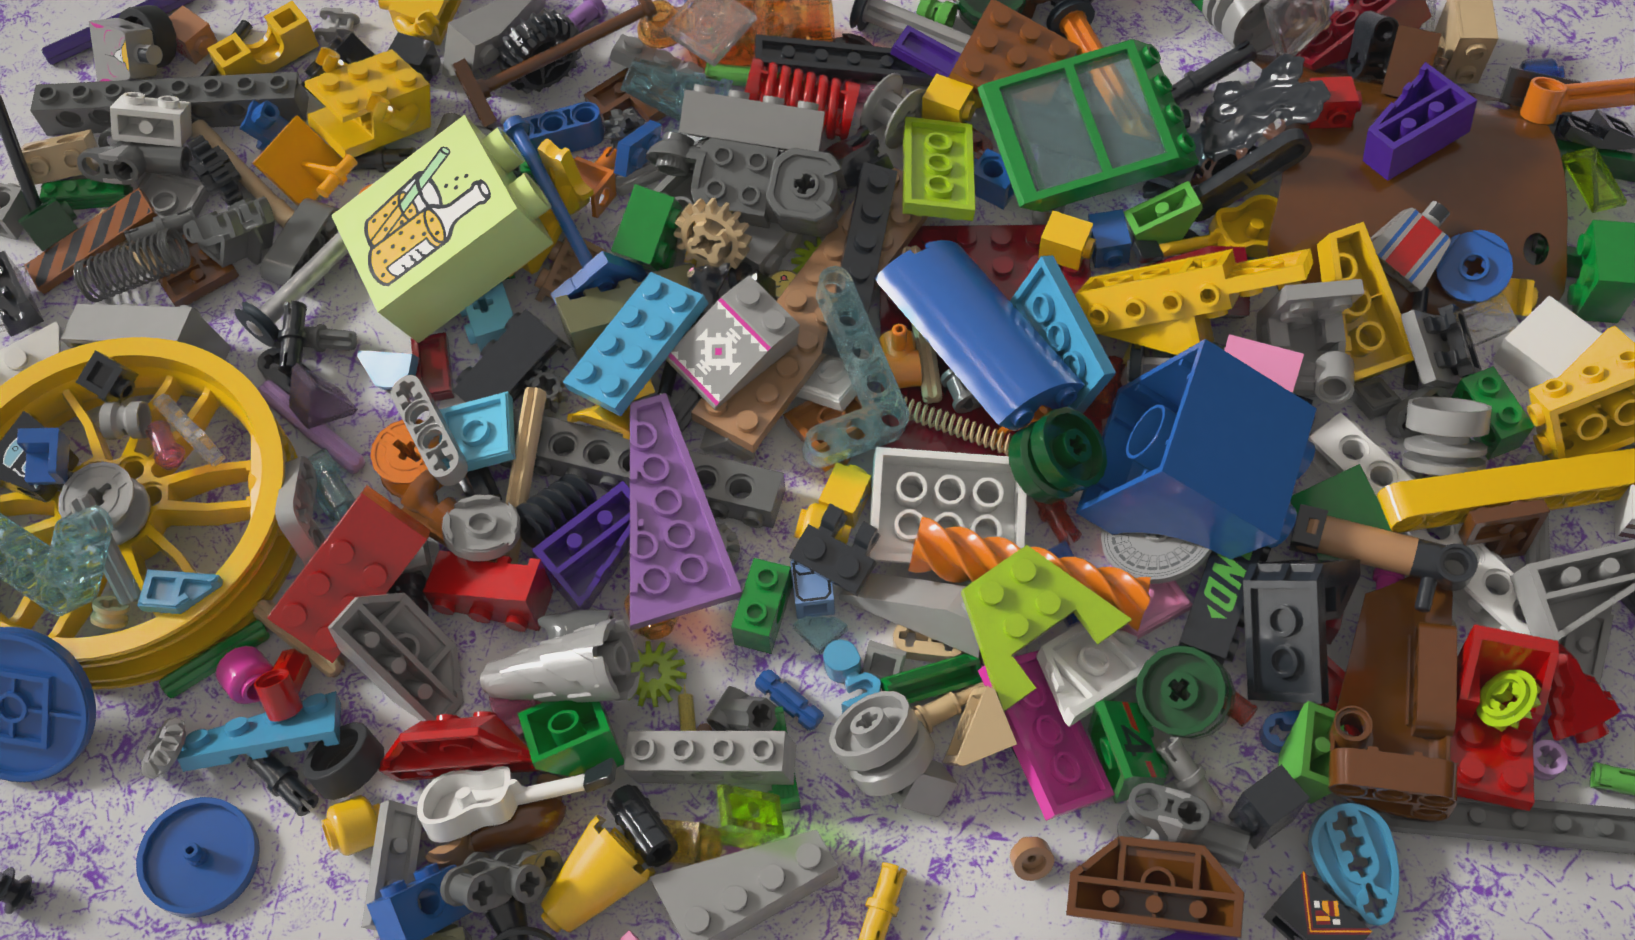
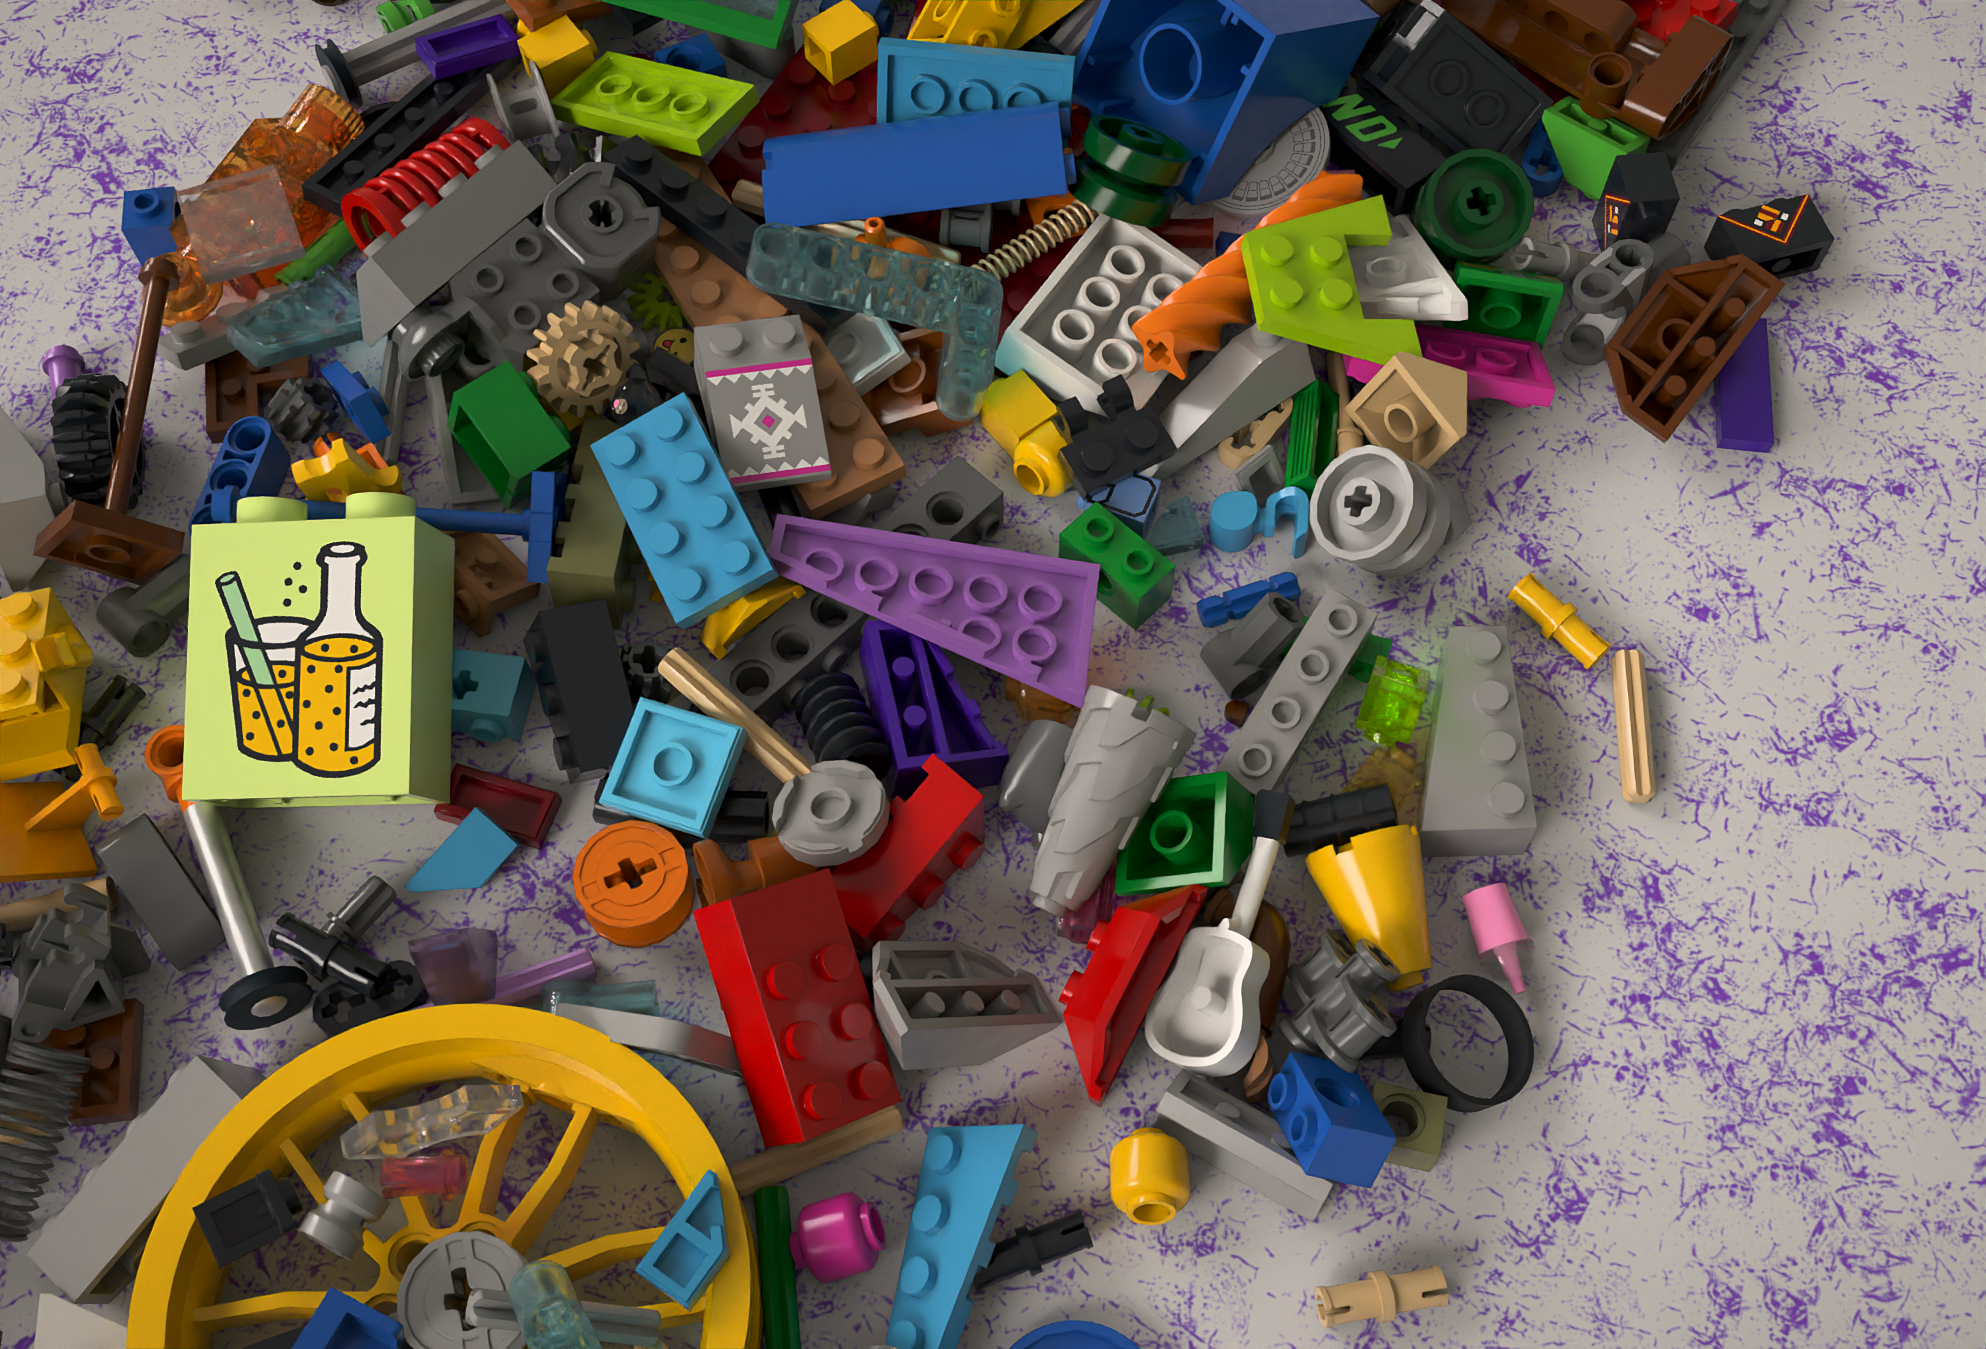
camera: 65 degrees left, 0 degrees up
(281, 685) = (897, 1180): red piece -> none
(346, 766) = (1095, 1143): black tyre -> none
(427, 430) = (630, 823): light grey beam -> none
(686, 712) = (1204, 718): light yellow piece -> none
(1031, 858) = (1572, 450): medium nougat tile -> none
(1375, 845) = (1721, 171): dark azure piece -> none

